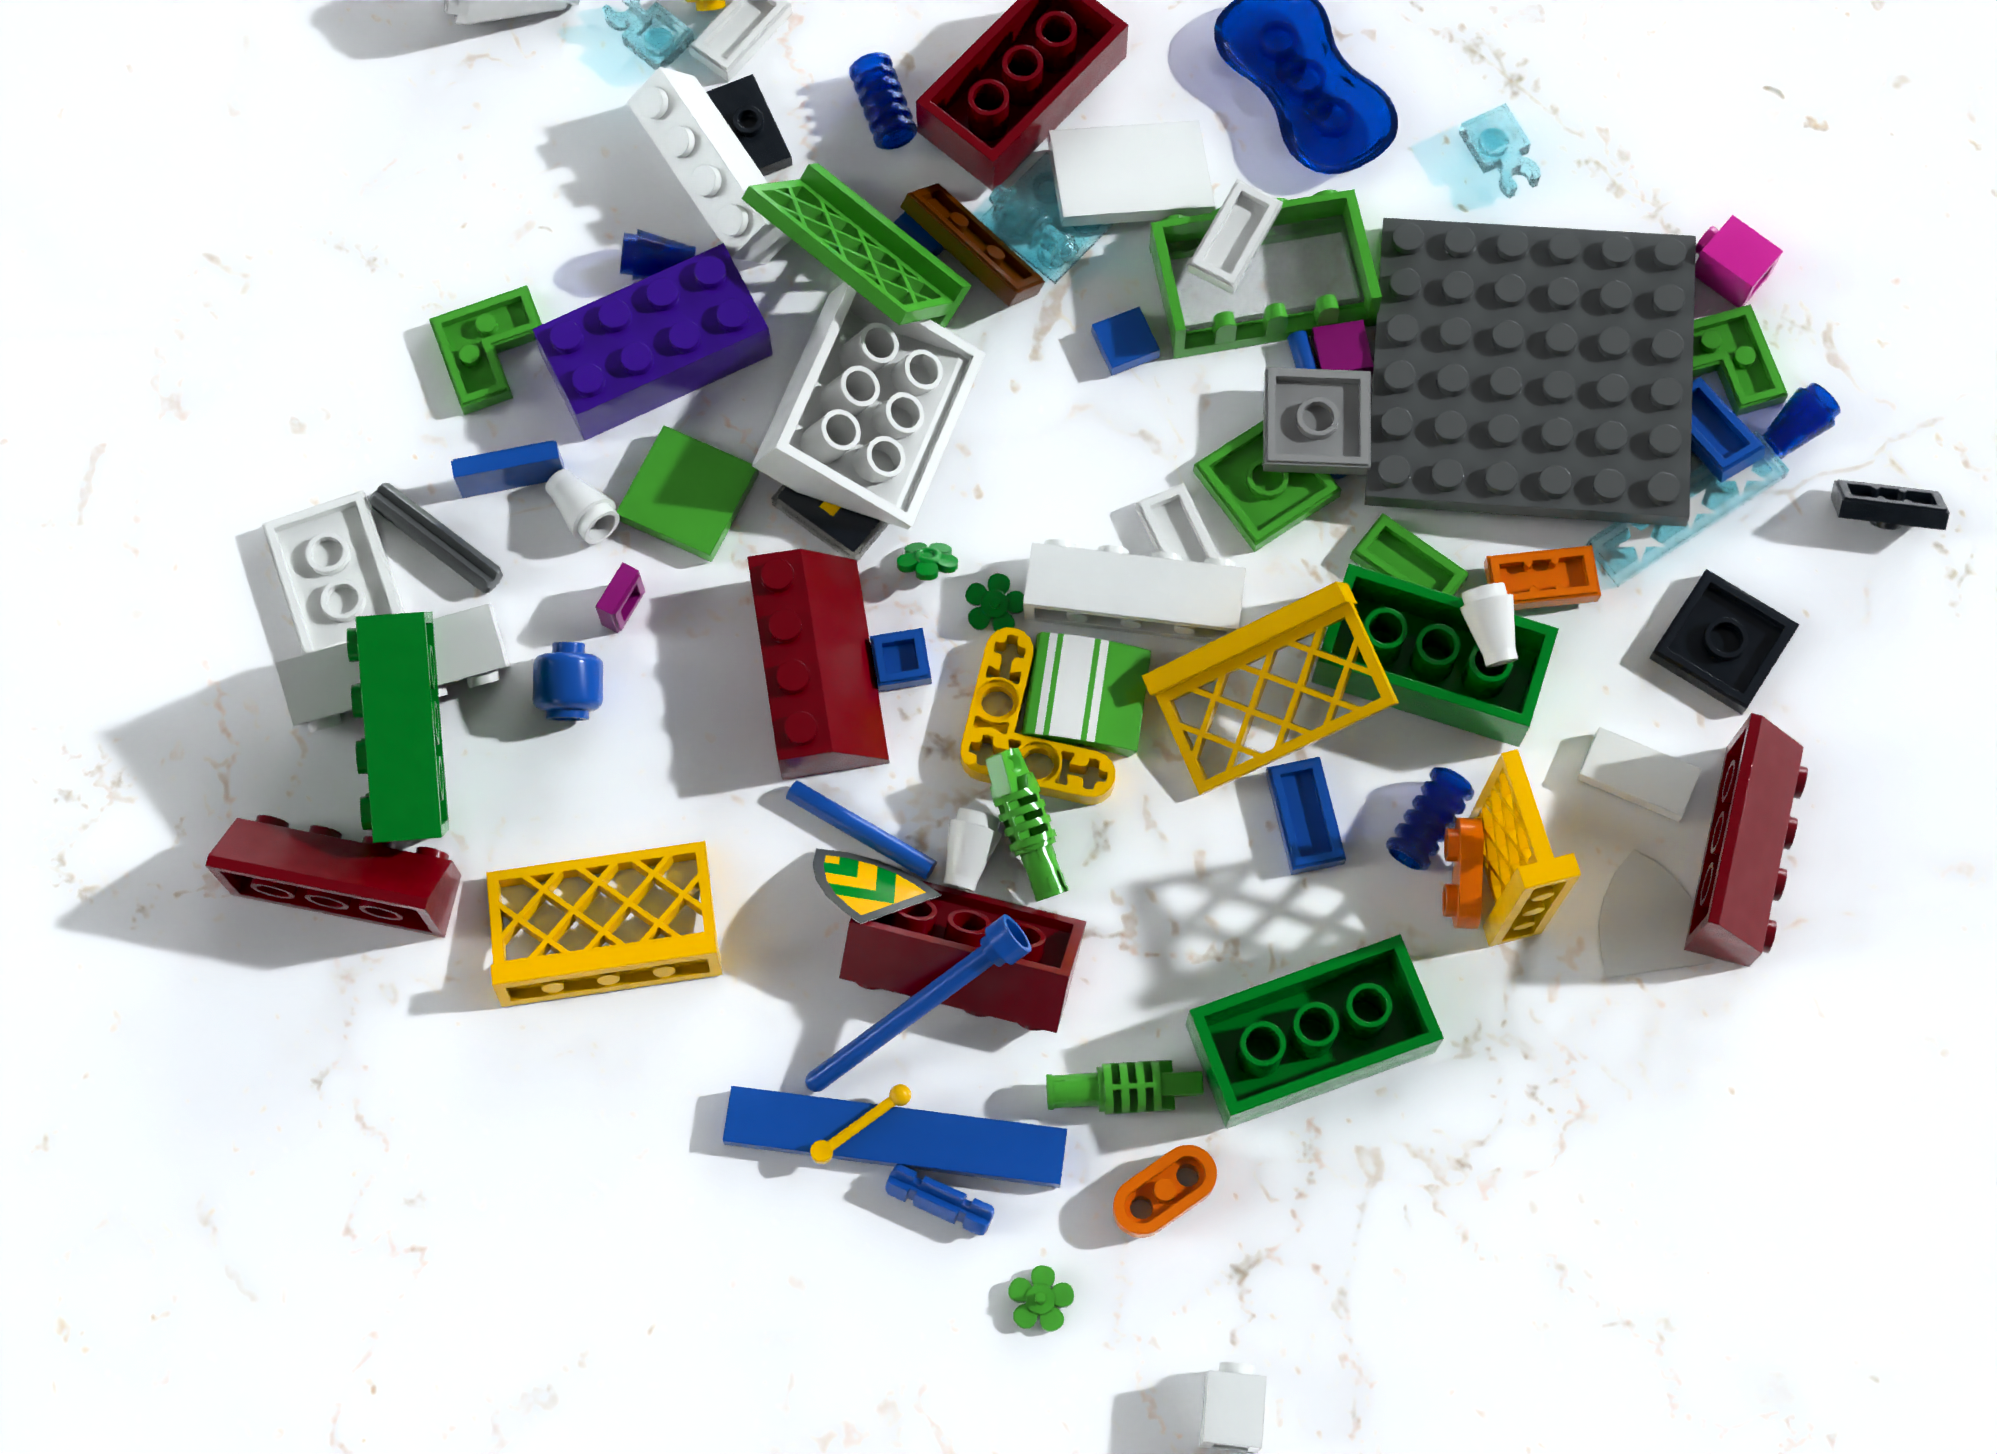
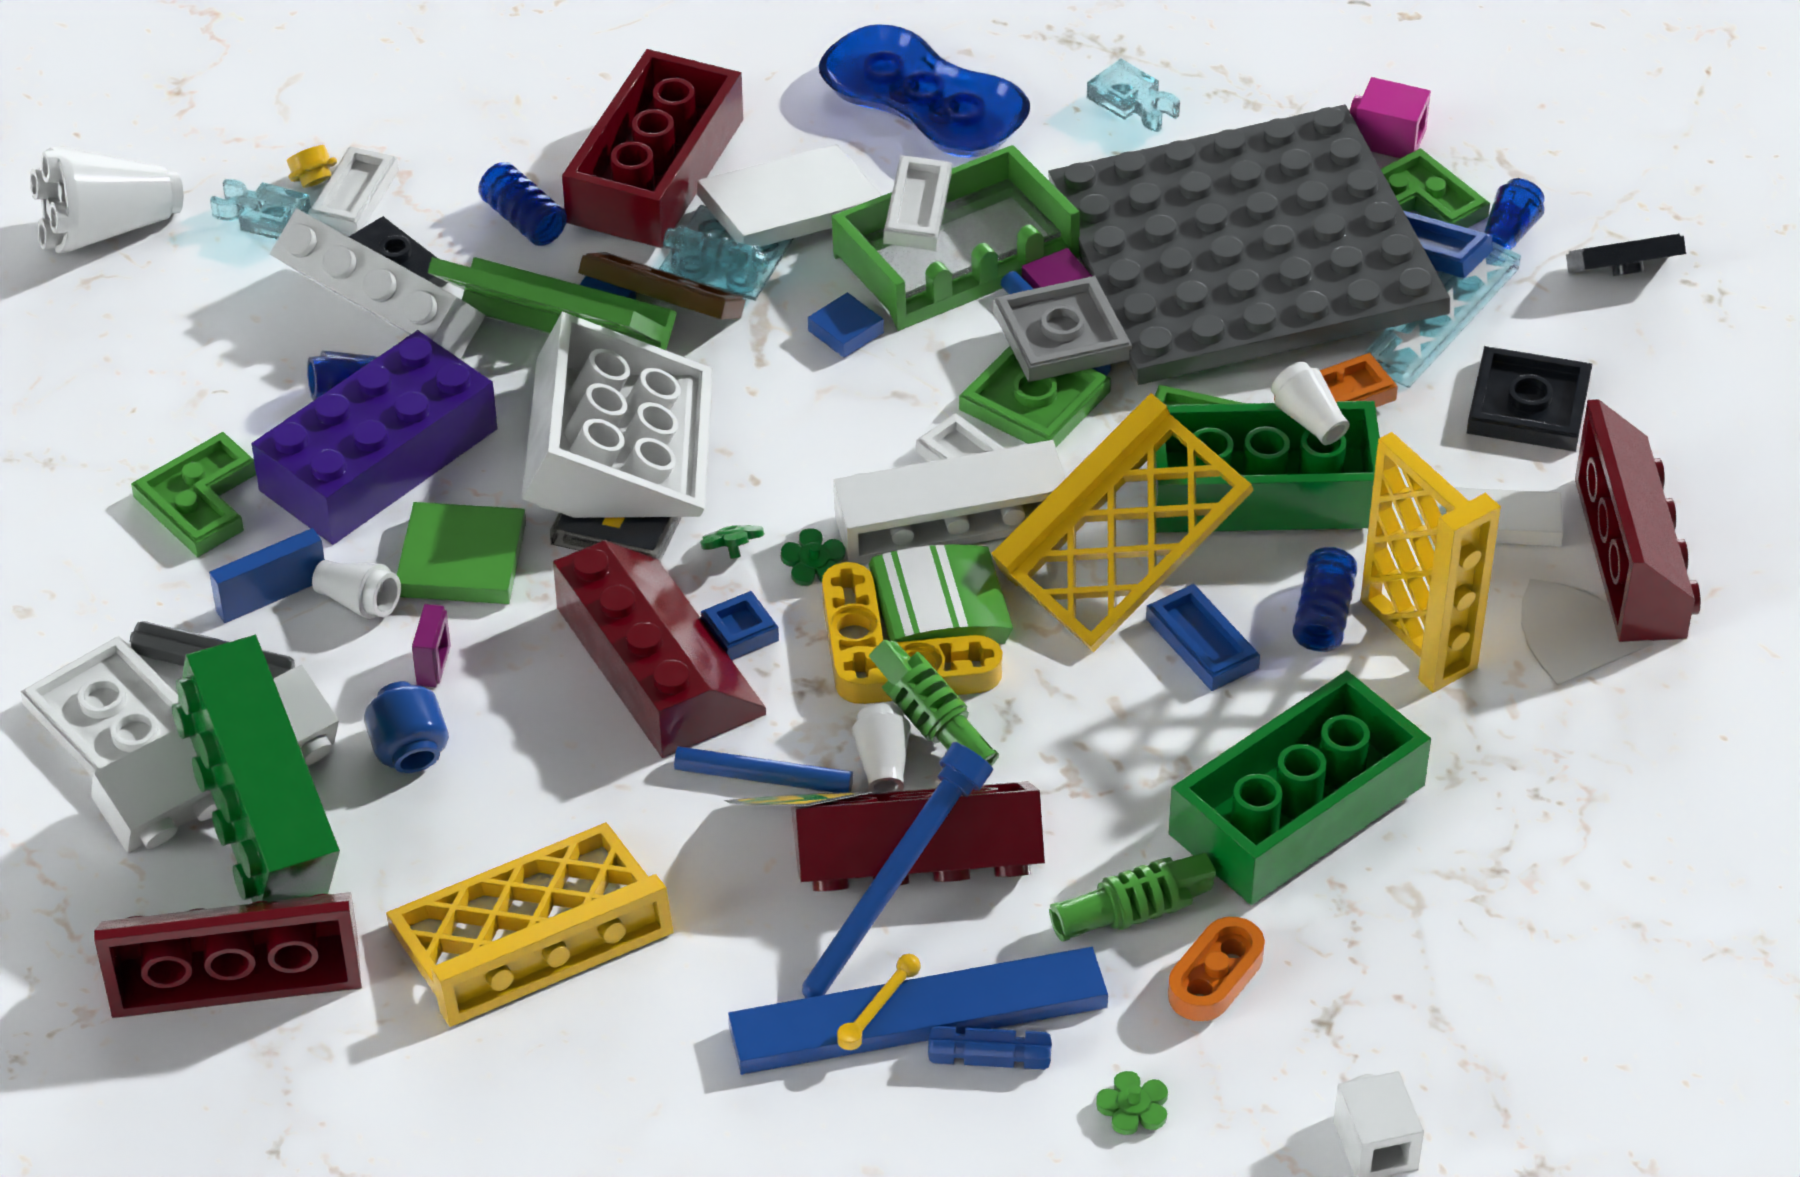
camera: 20 degrees left, 25 degrees down
(1464, 896) = (1388, 638): orange plate -> none

